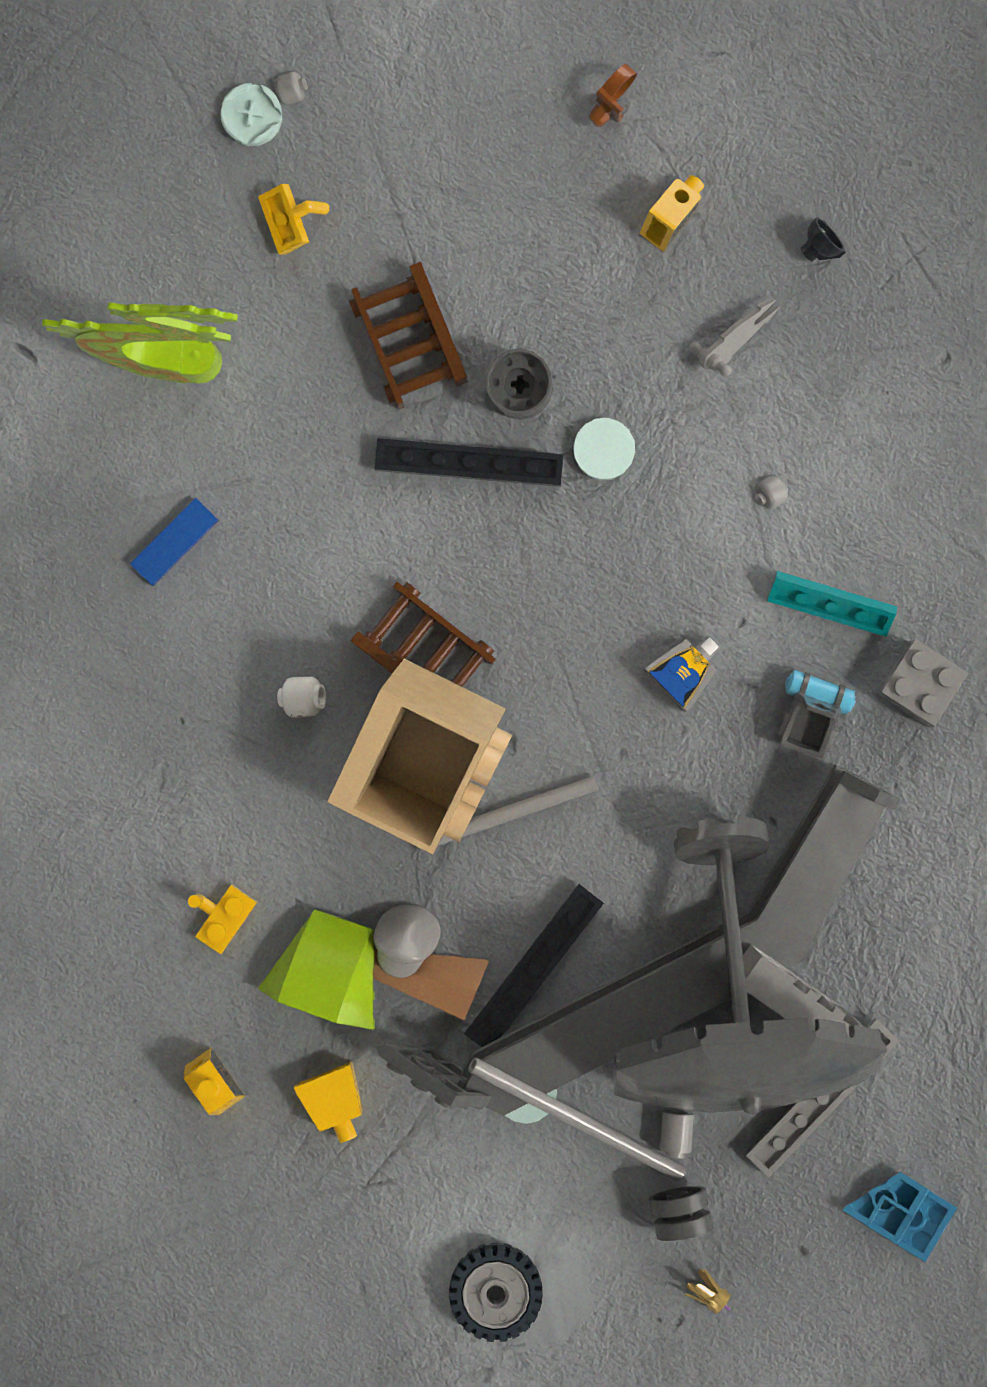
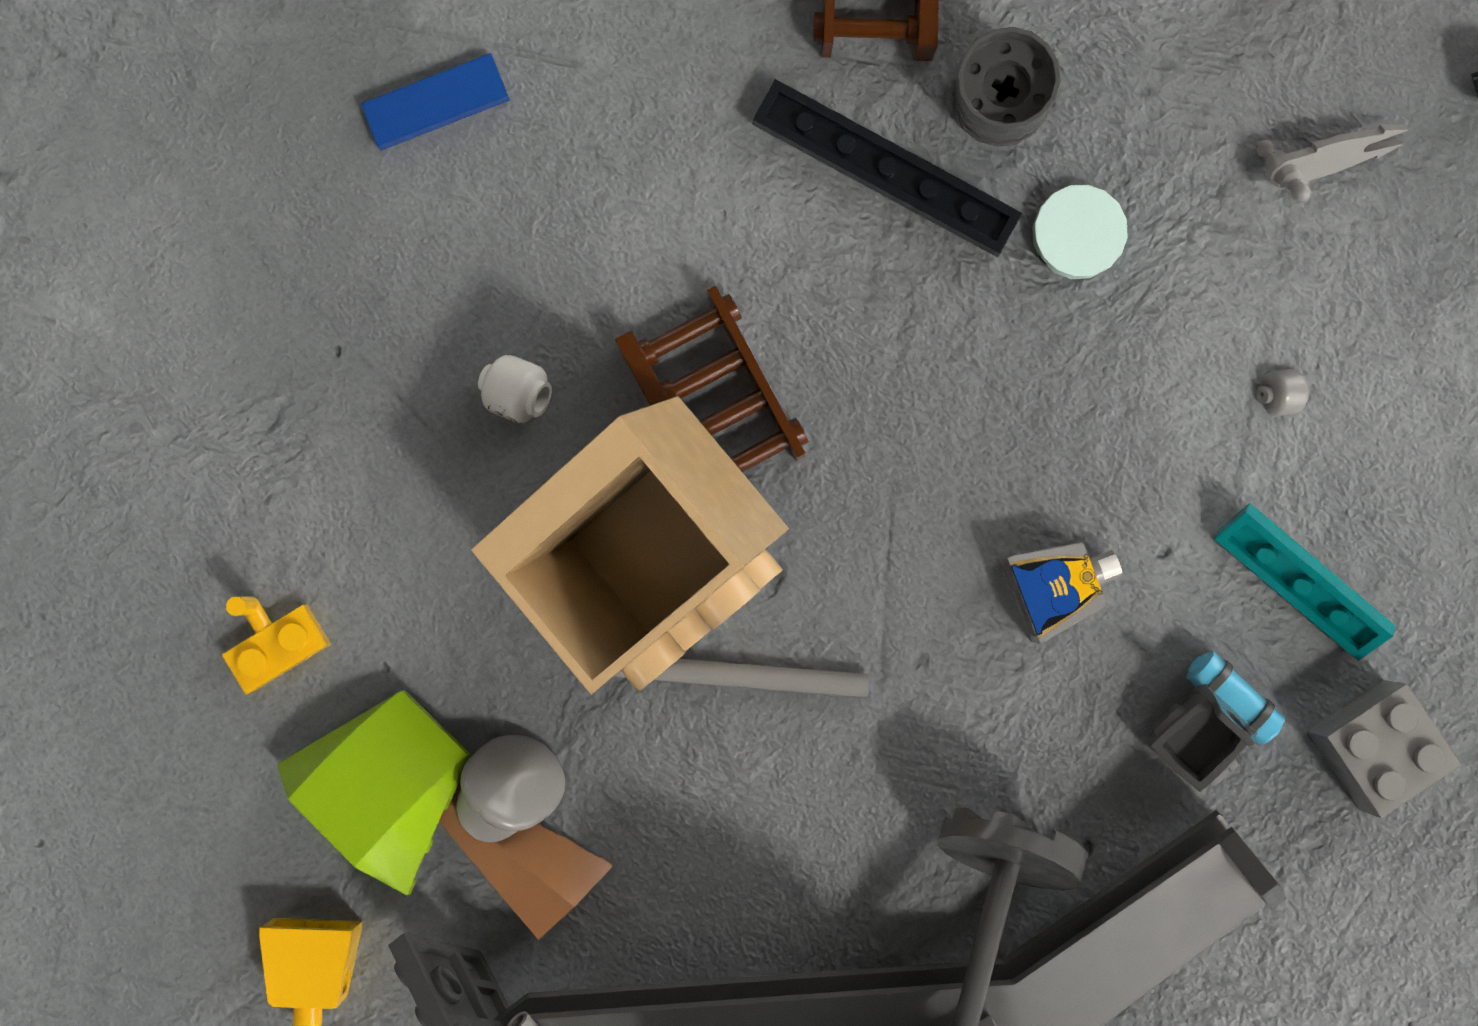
camera: 20 degrees right, 0 degrees up
(212, 1083) = (150, 869): yellow torso -> none
(534, 967) = (669, 905): black plate -> none

